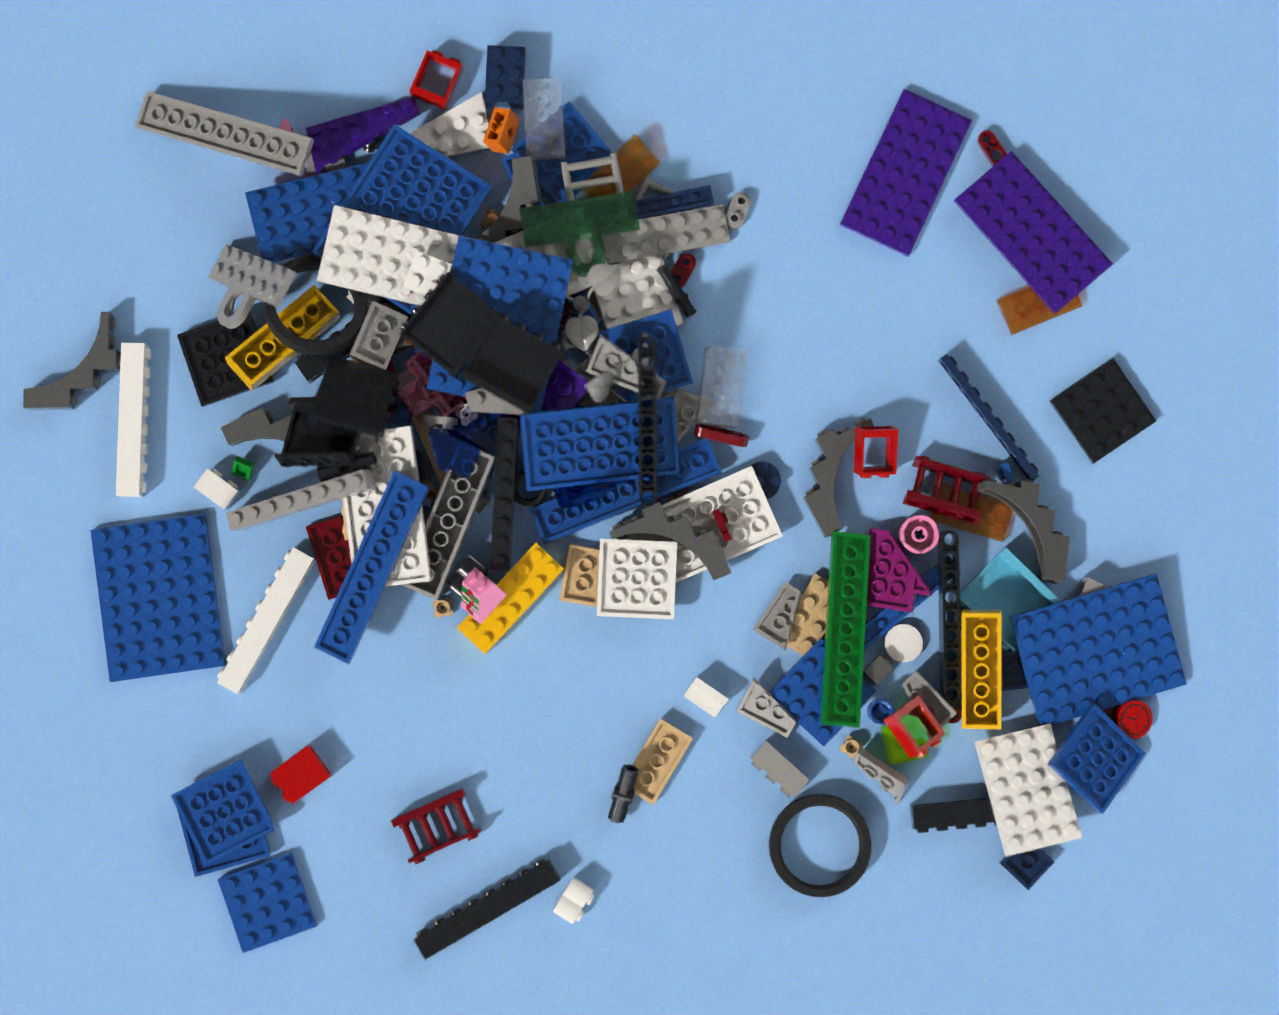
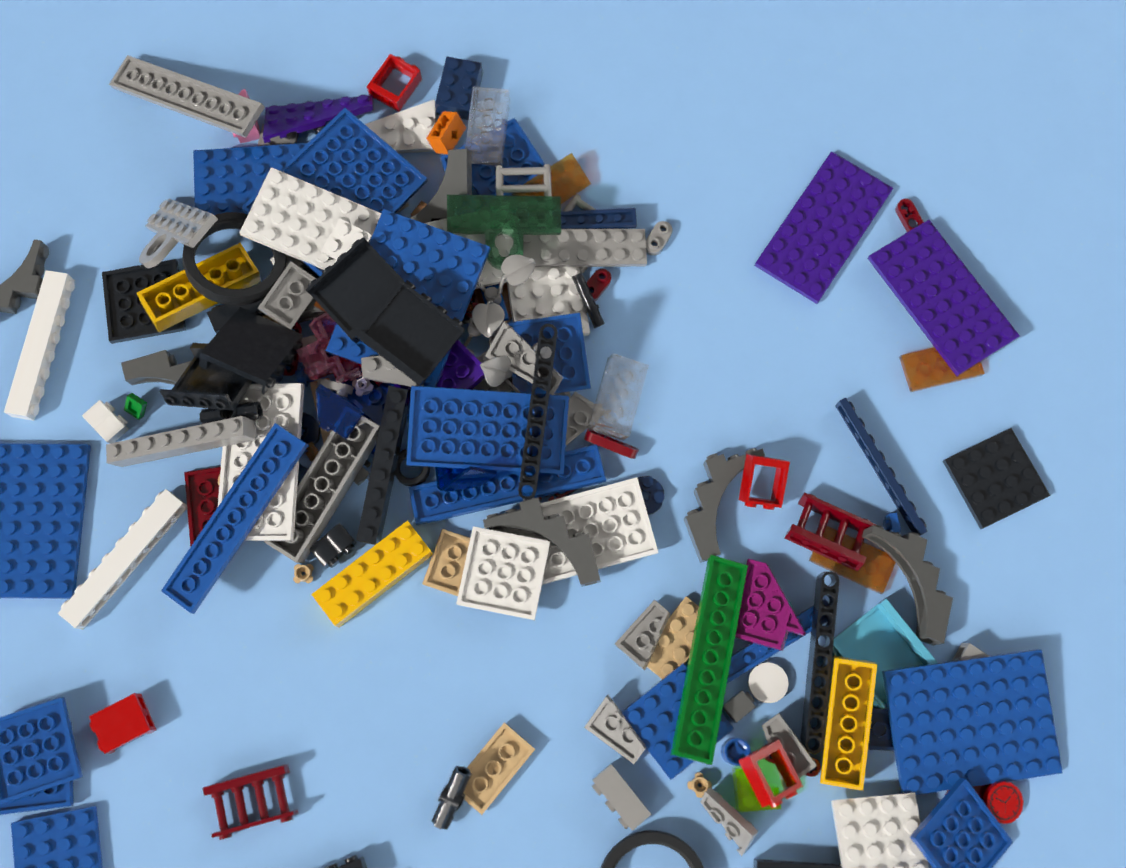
camera: 10 degrees right, 10 degrees down
(480, 595) = (340, 563): bright pink slope -> none
(705, 697) = (555, 707): white panel -> none
(721, 519) = (598, 525): dark red plate -> none
(928, 532) = (807, 573): bright pink brick -> none

